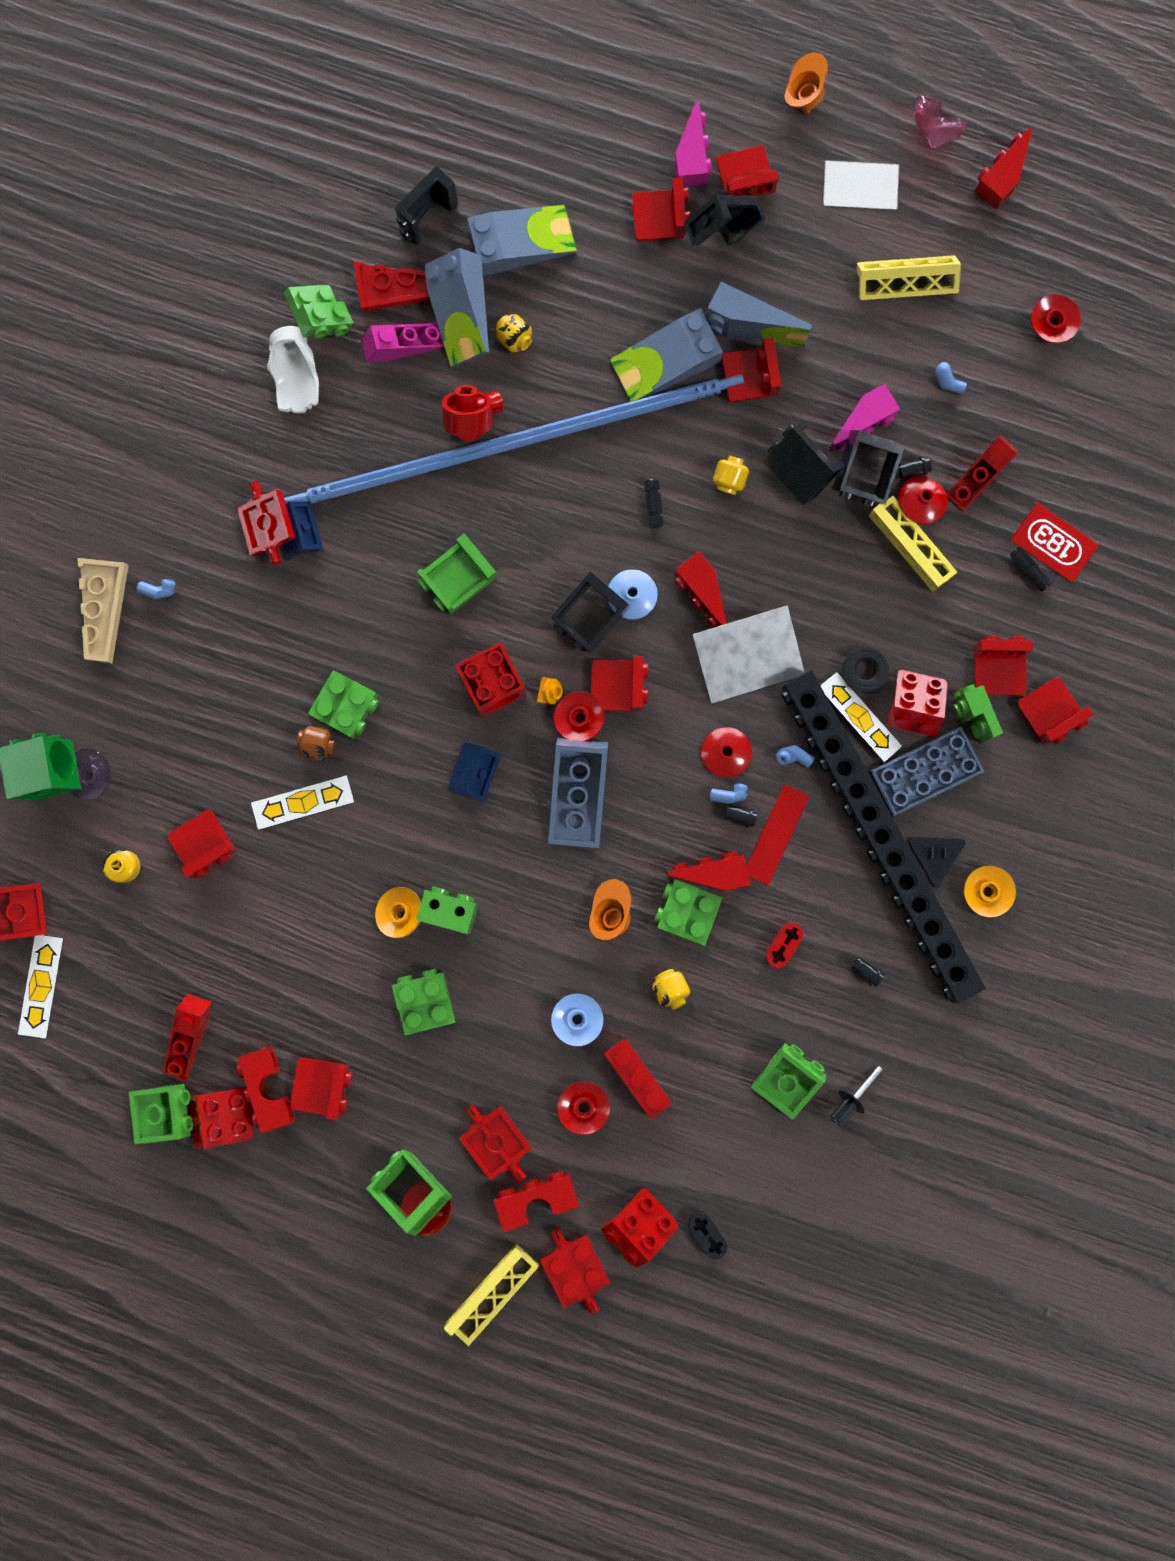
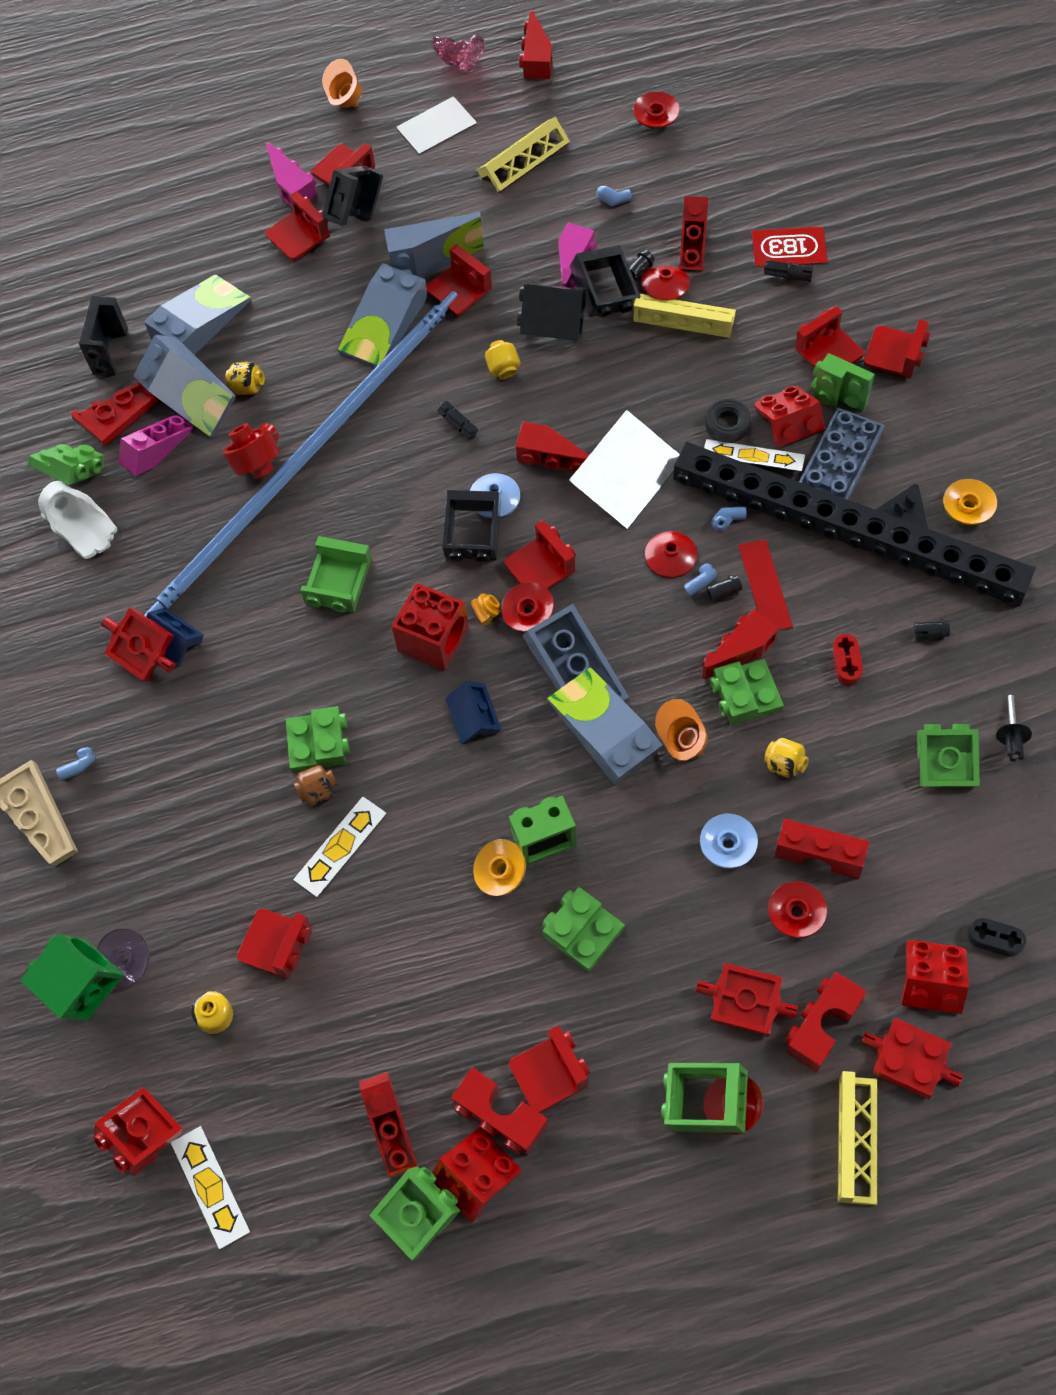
camera: 30 degrees left, 20 degrees down
(558, 860) = (605, 725): none -> sand blue slope

